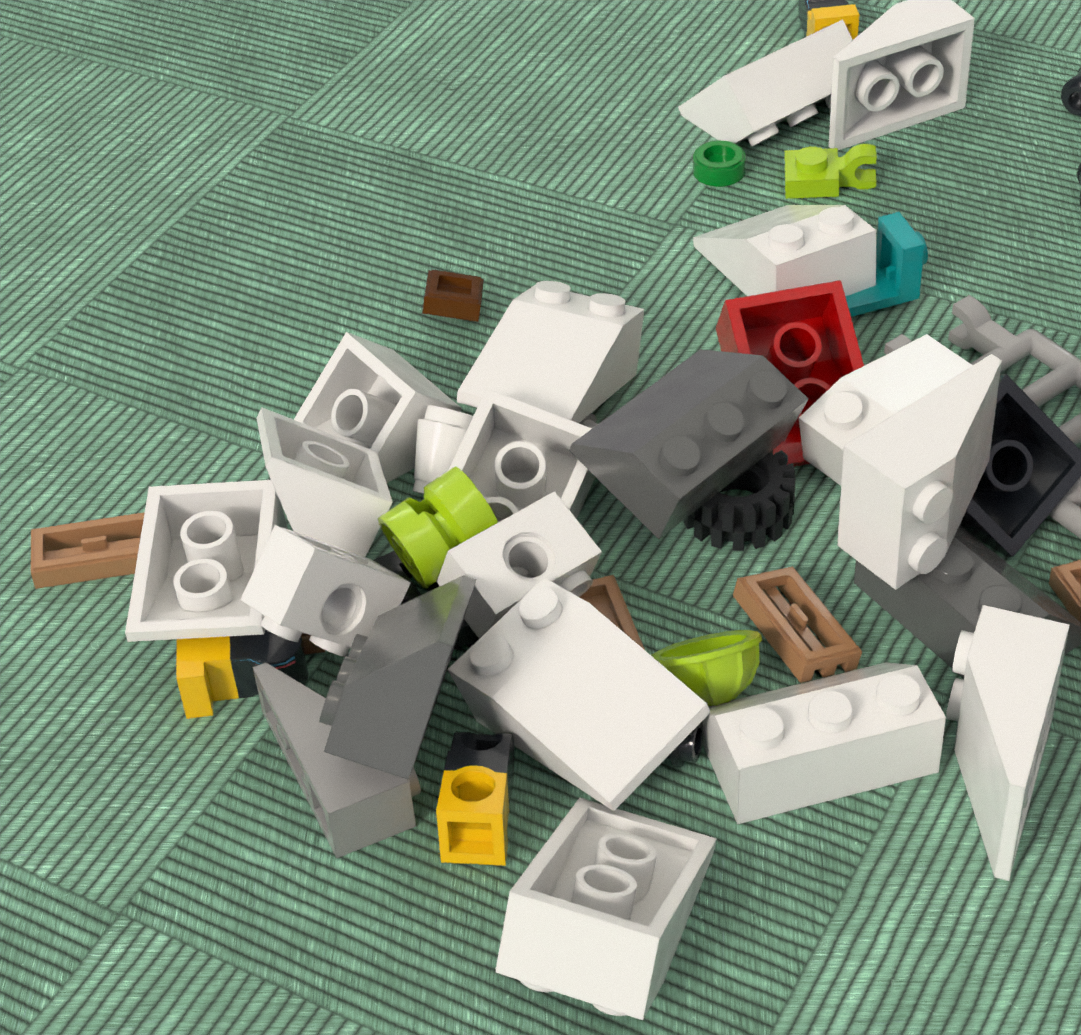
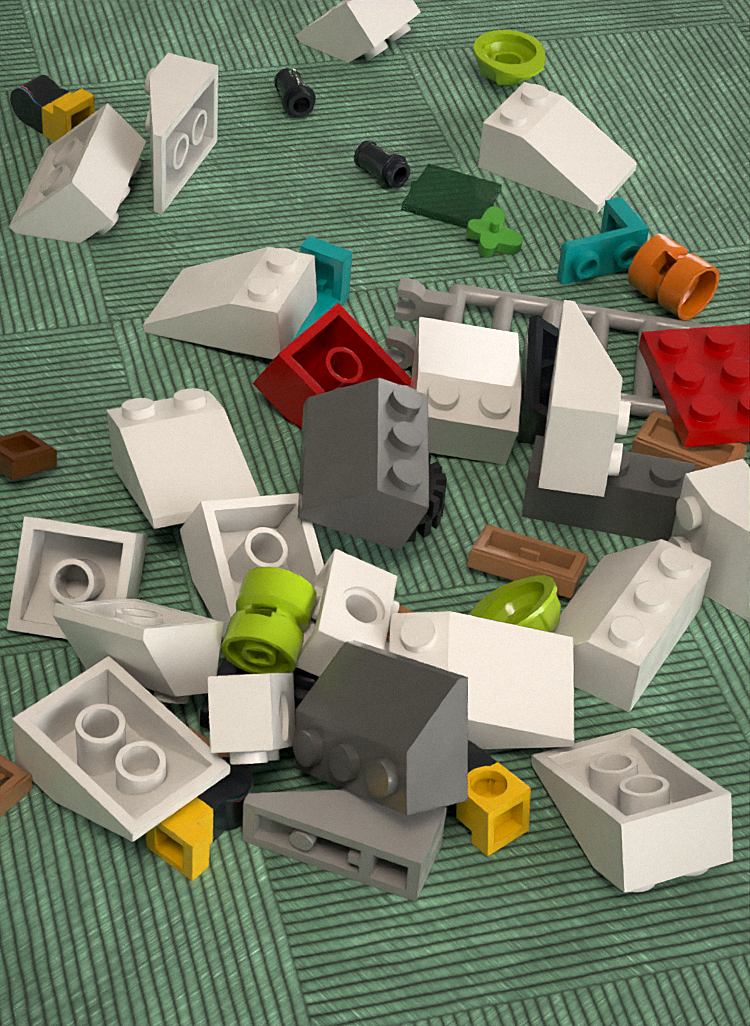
camera: 50 degrees left, 0 degrees up
(437, 443) = (171, 571): white cone -> none
(719, 163) = (94, 258): green tile -> none
(820, 171) = (180, 235): lime plate -> none

